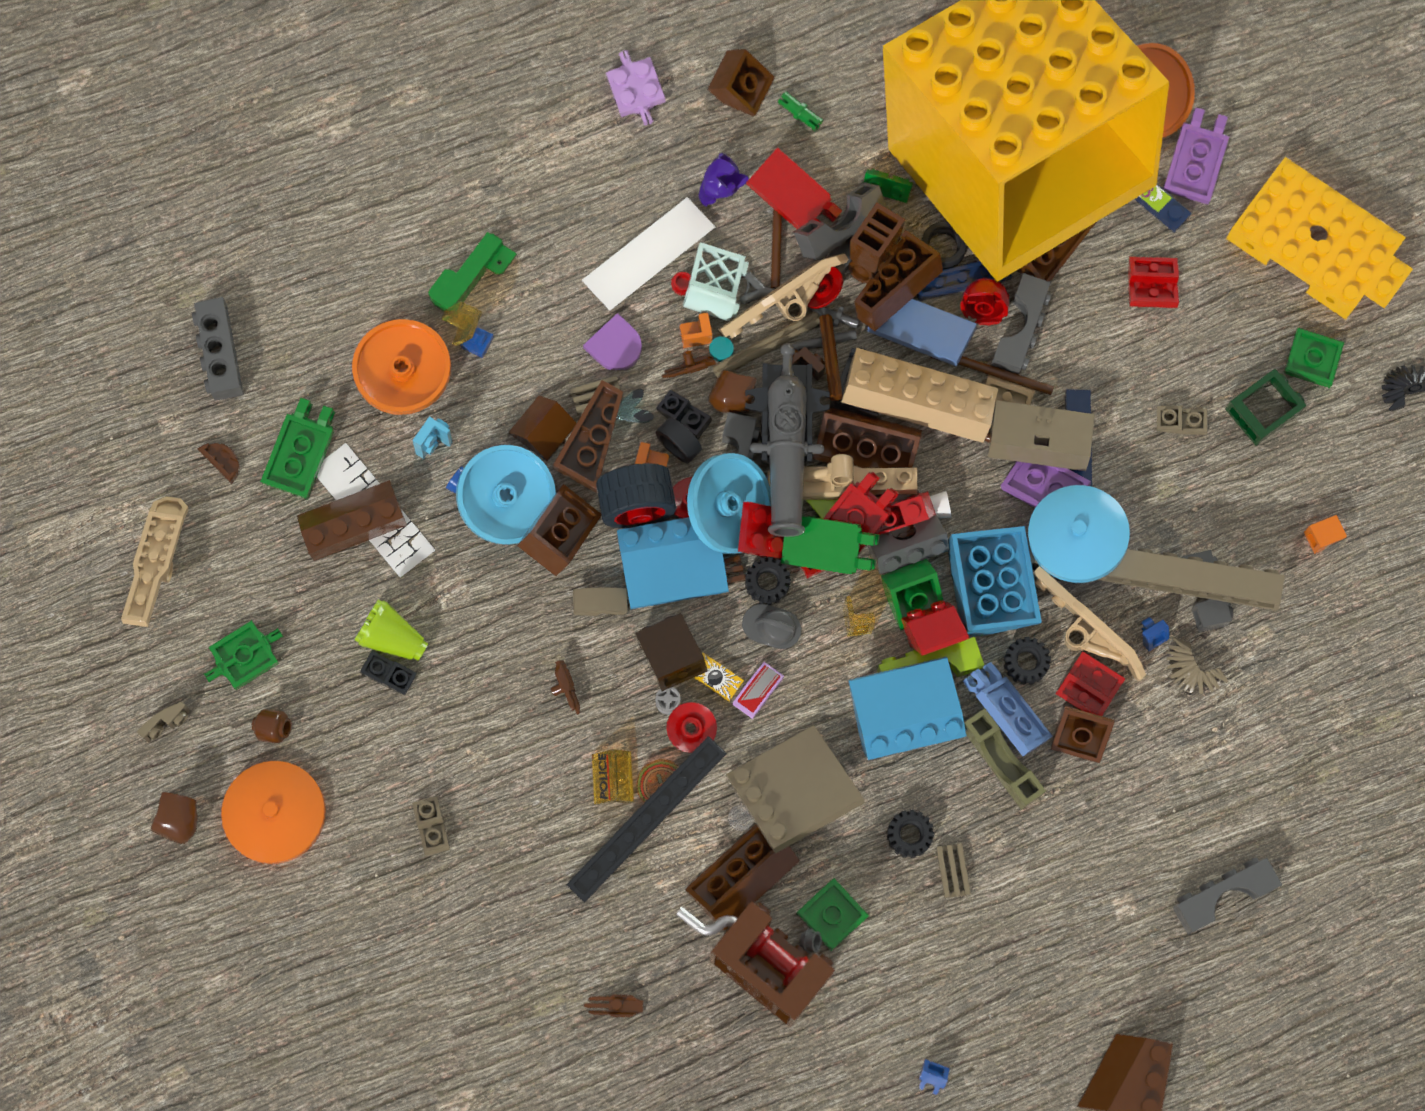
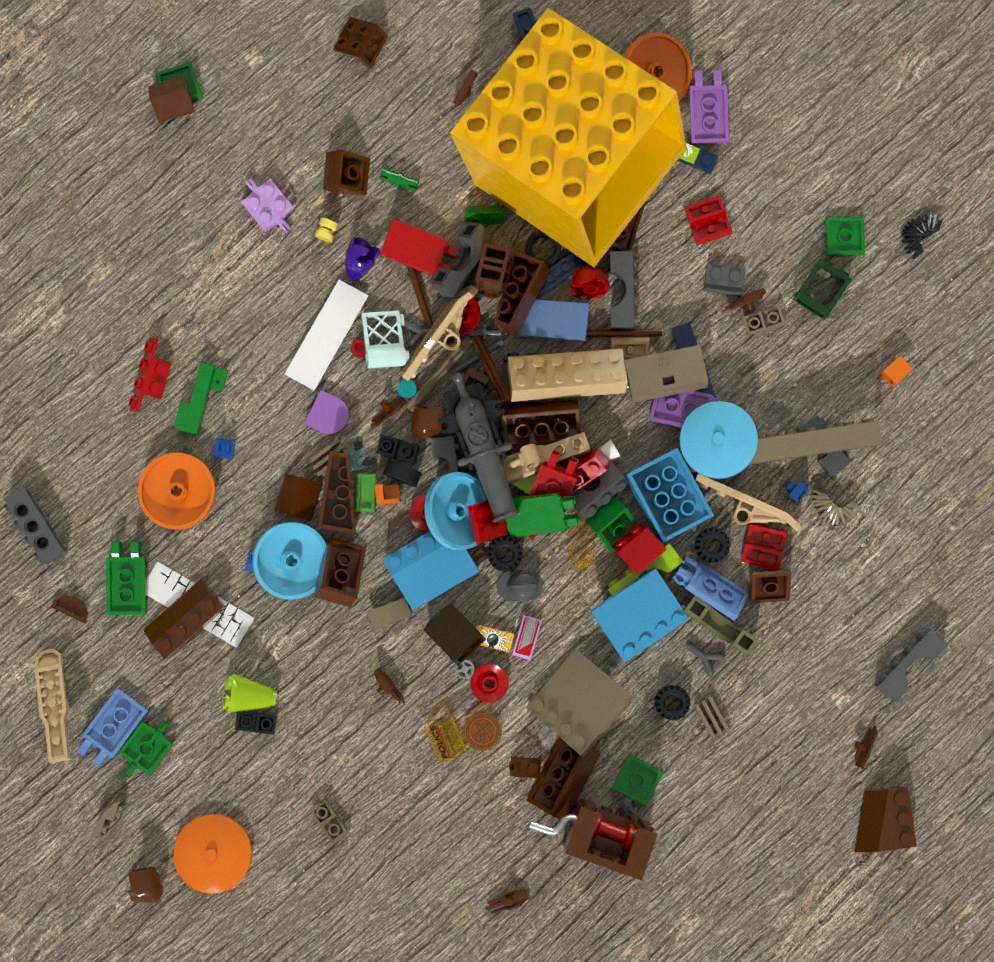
camera: 15 degrees left, 10 degrees up
(212, 615) = (112, 726): none -> medium blue tile
(271, 726) = (187, 793): reddish brown head -> none
(424, 229) = (151, 377): none -> red bracket
(426, 439) = (217, 540): medium azure bracket -> none
(463, 317) = (212, 439): clear yellow panel -> none
(626, 448) = (365, 493): none -> bright green tile
(636, 495) = (387, 529): black wheel -> none
(646, 819) = (481, 761): black tile -> none
(693, 136) = (326, 230): none -> light yellow wheel
(696, 332) = (384, 382): orange panel -> none
(698, 846) = (525, 767): none -> reddish brown bracket
(933, 1074) = (748, 868): blue tile -> none
(971, 795) = (705, 657): none -> dark grey piece
(1134, 978) = (865, 747): none -> reddish brown piece
(1149, 357) = (724, 280): none -> dark grey plate
(1170, 389) = (748, 300): none -> reddish brown piece
(1343, 267) = (844, 161): yellow piece -> none

